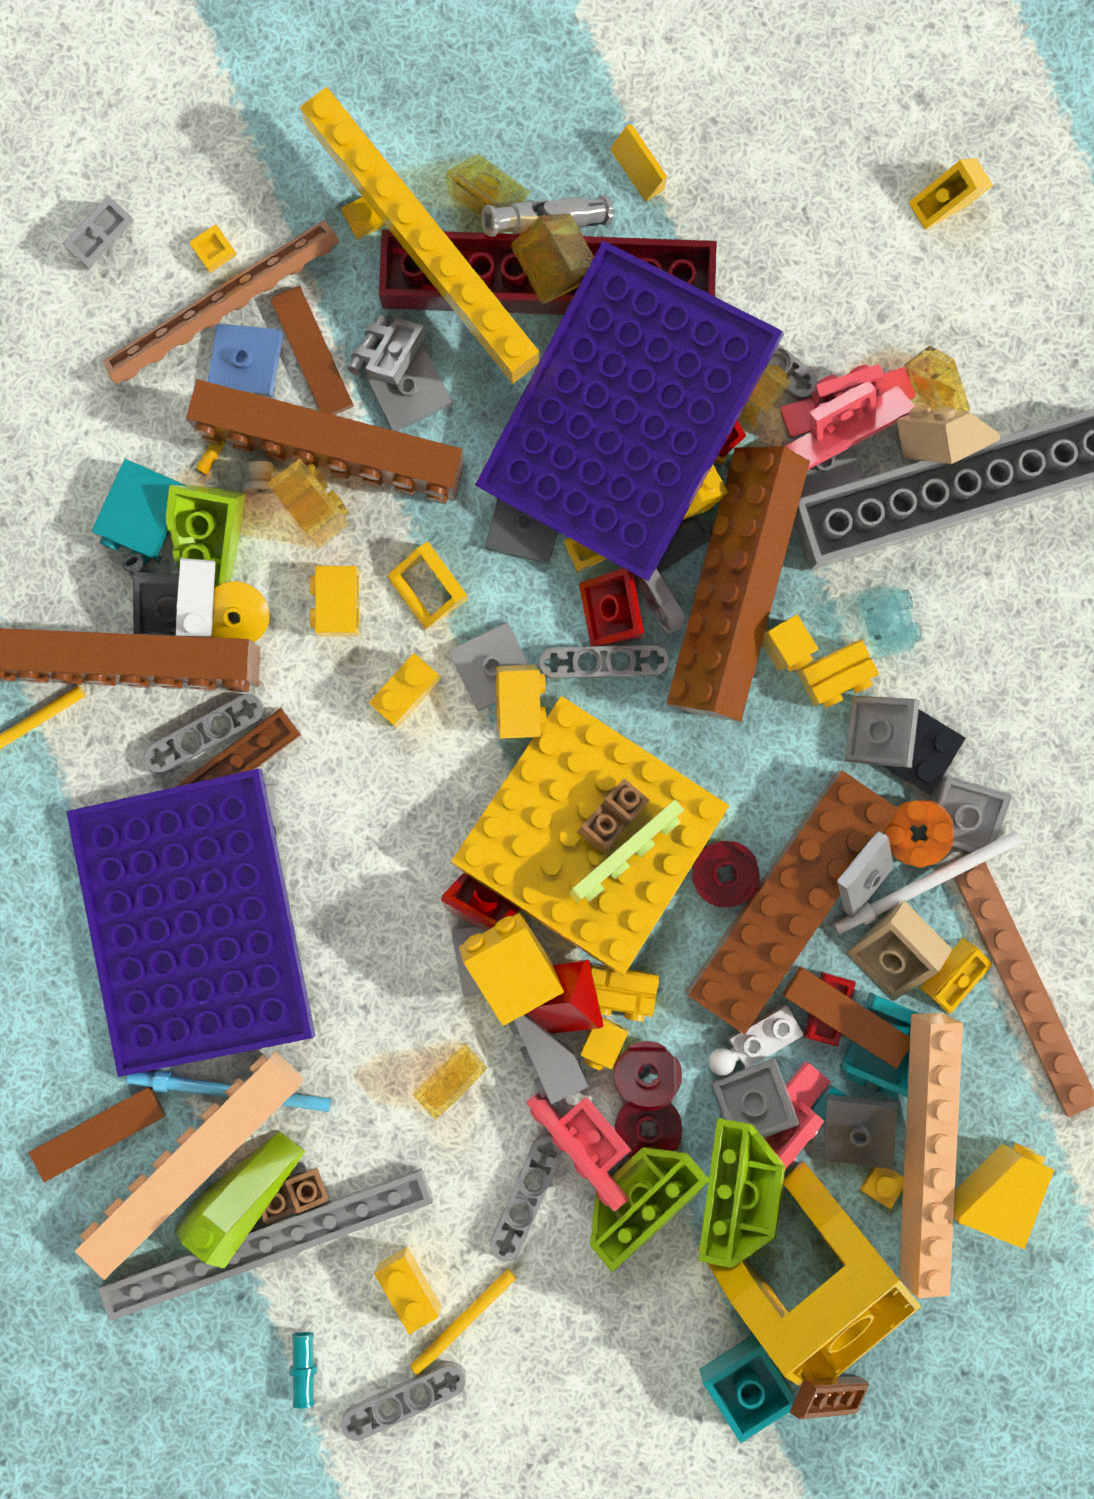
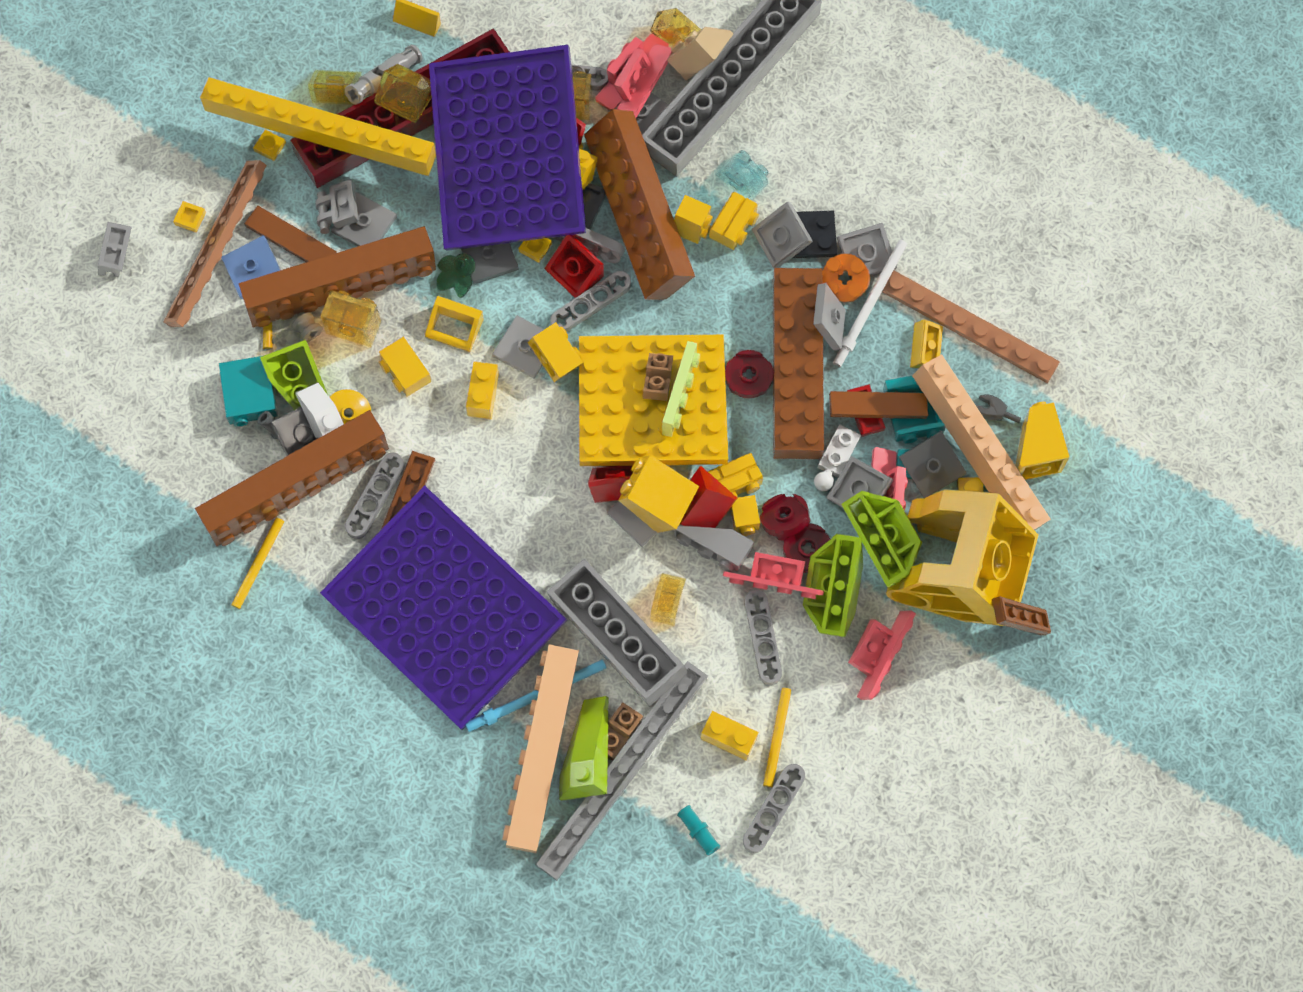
camera: 35 degrees left, 15 degrees down
(97, 1134) = (470, 775): dark orange tile -> none
(359, 1091) = (617, 632): none -> light grey brick
(467, 524) = (453, 275): none -> clear green plate
(643, 1306) = (877, 650): none -> coral bracket
(747, 1388) = (974, 653): teal brick -> none
(900, 951) = (881, 351): tan slope -> none
(983, 1110) = (997, 409): none -> dark grey hand

